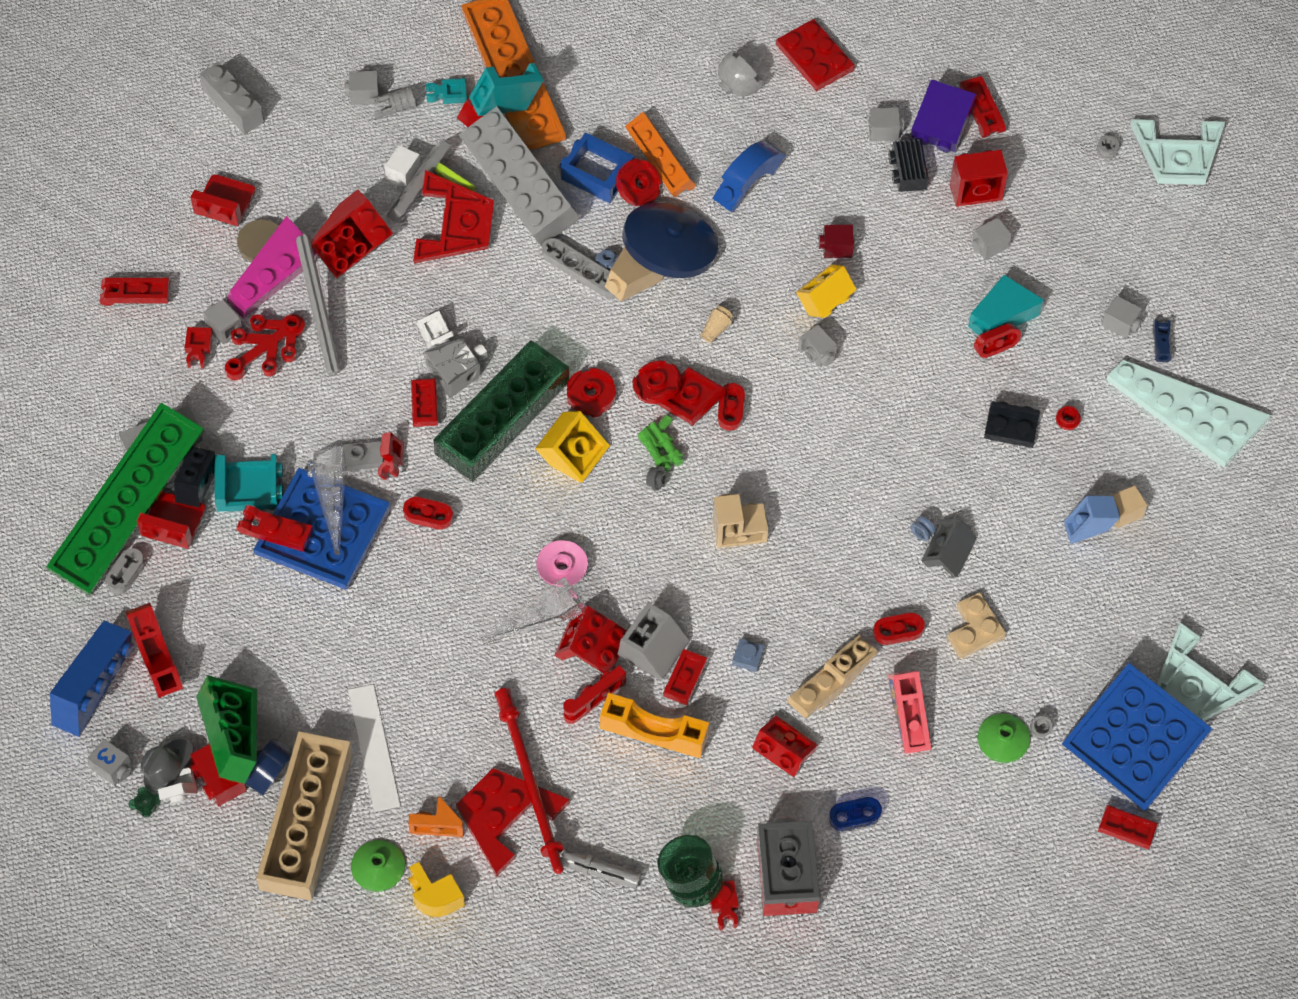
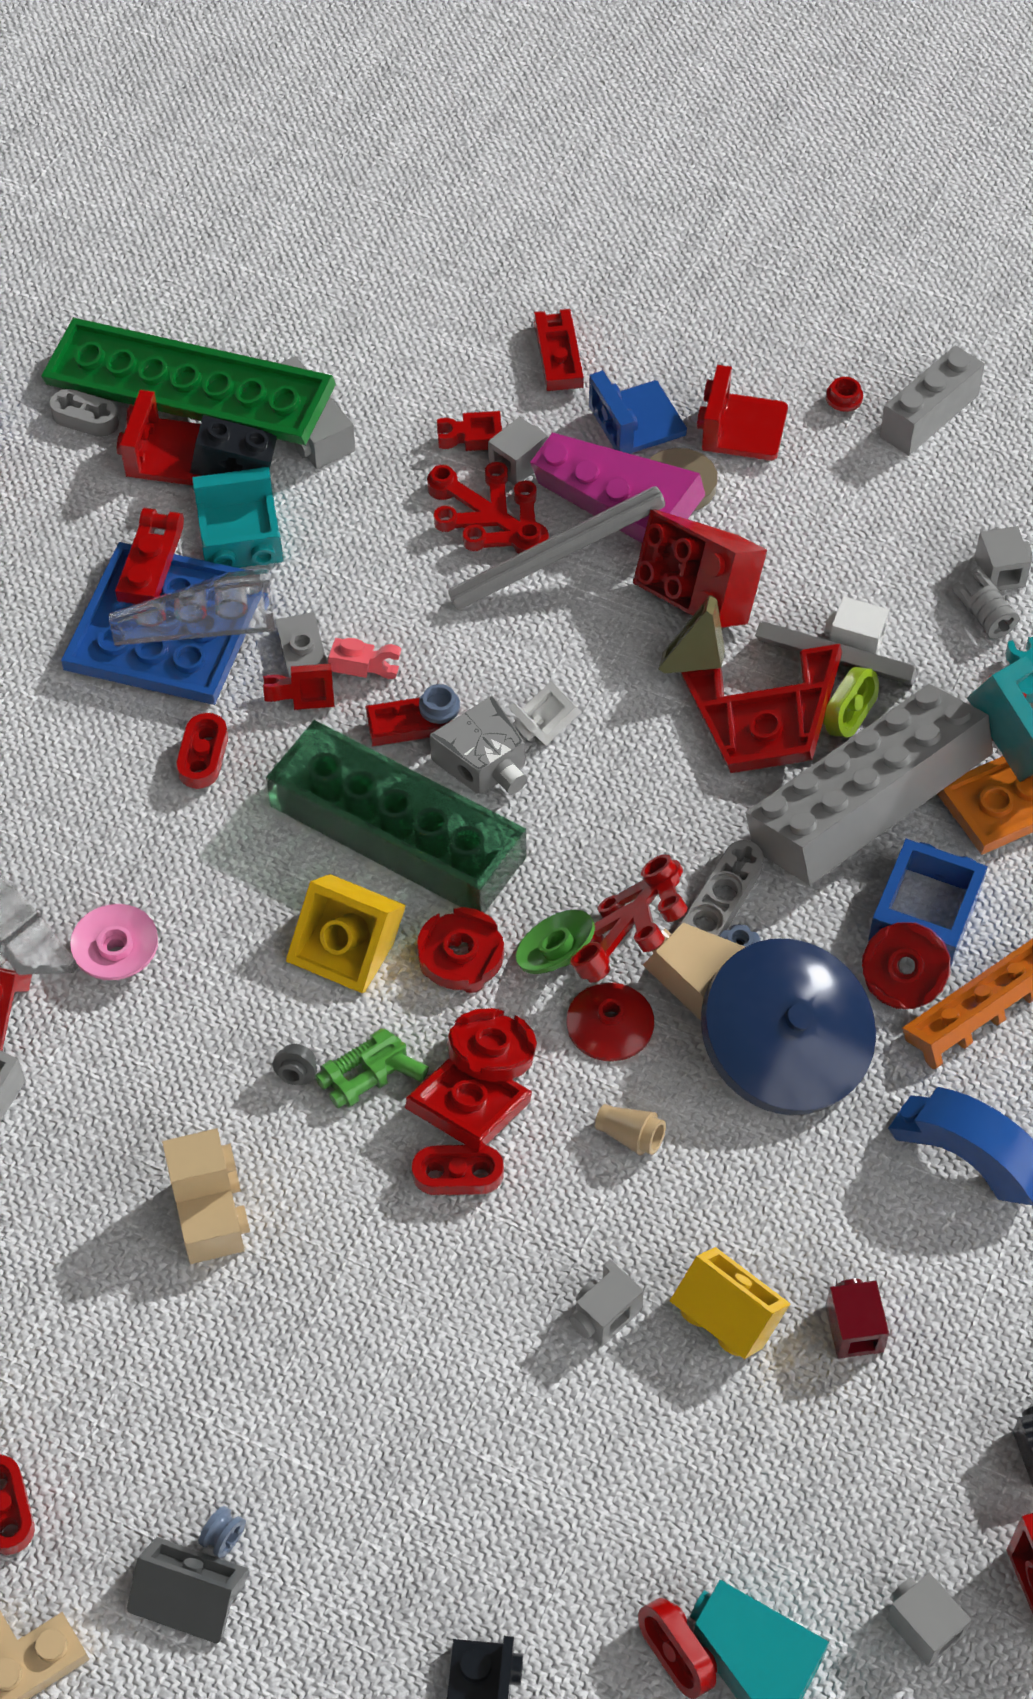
camera: 85 degrees right, 5 degrees down
(205, 255) = (634, 416): none -> blue bracket
(211, 139) = (844, 394): none -> red plate
(373, 426) = (358, 658): none -> coral plate
(402, 244) = (698, 643): none -> olive slope
(425, 379) = (439, 704): none -> sand blue plate
(587, 341) = (554, 941): none -> bright green dish
(590, 300) = (659, 877): none -> red plant
(644, 337) = (605, 1036): none -> red dish

